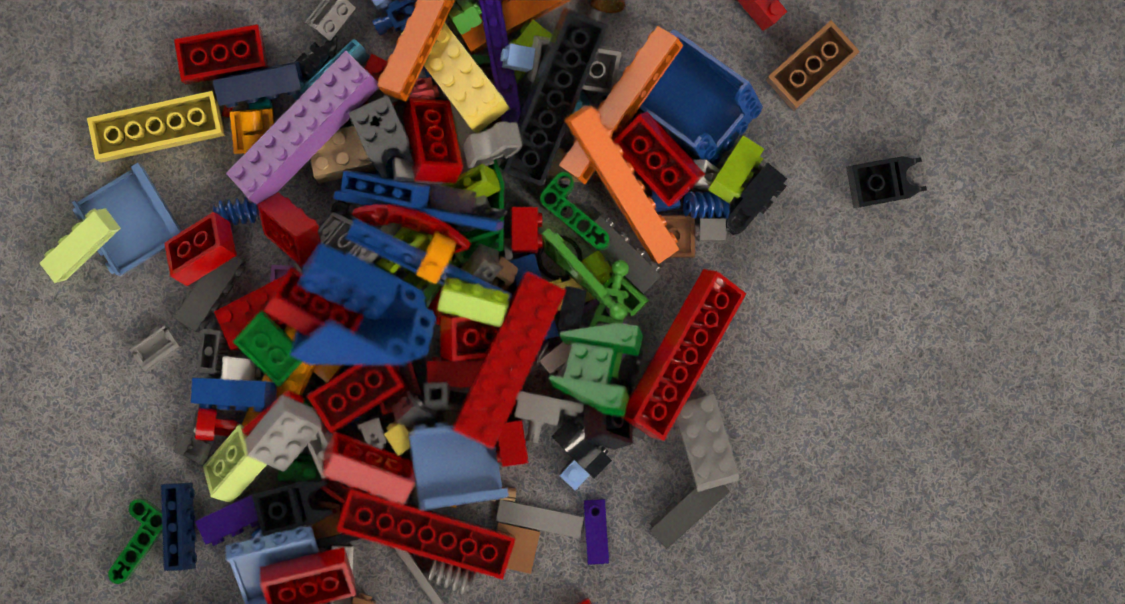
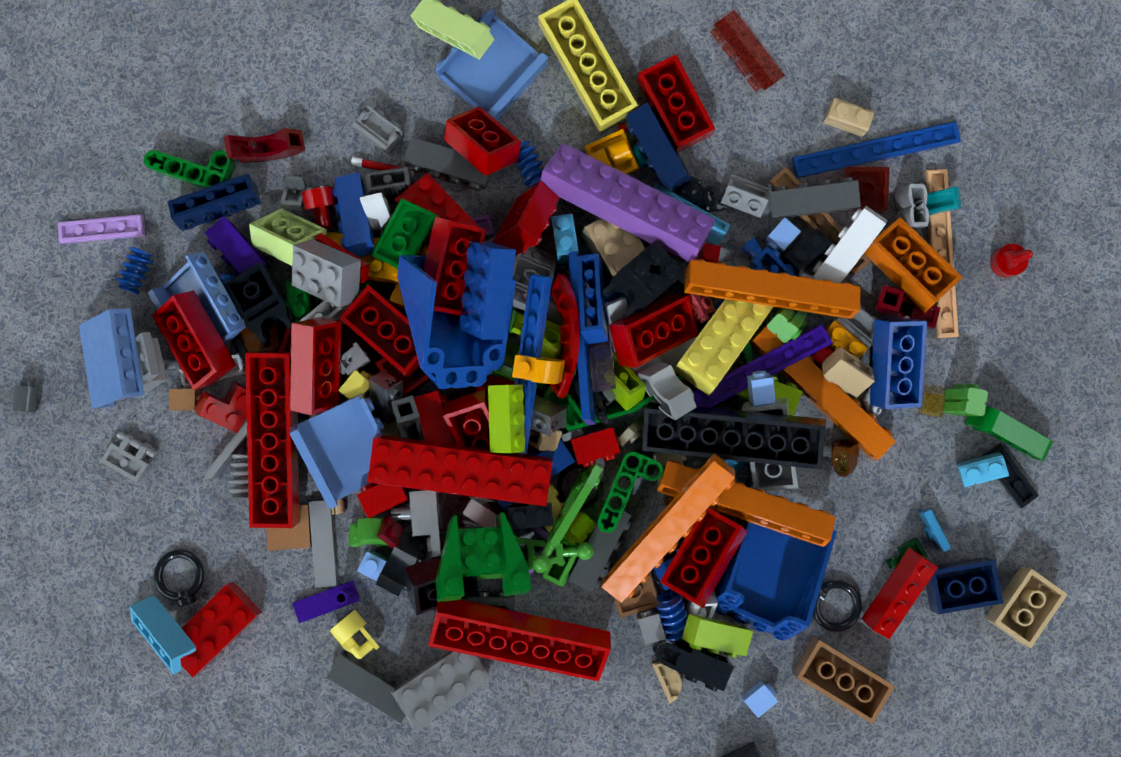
camera: 80 degrees right, 0 degrees up
(139, 460) = (265, 148): none -> dark red arch
(189, 360) = (375, 165): none -> red bar
(317, 199) = (564, 237): none -> medium azure brick
(385, 570) = (227, 412): none -> red brick
(522, 189) = (632, 432): none -> dark tan plate
(542, 464) = (365, 533): none -> bright green brick
(547, 447) = (390, 532): none -> dark red plate
(626, 517) = (346, 628): none -> light yellow piece
(727, 59) = (857, 606): none -> black piece
(765, 228) = (669, 679): none -> tan tile
(808, 148) = (760, 698): none -> light blue brick

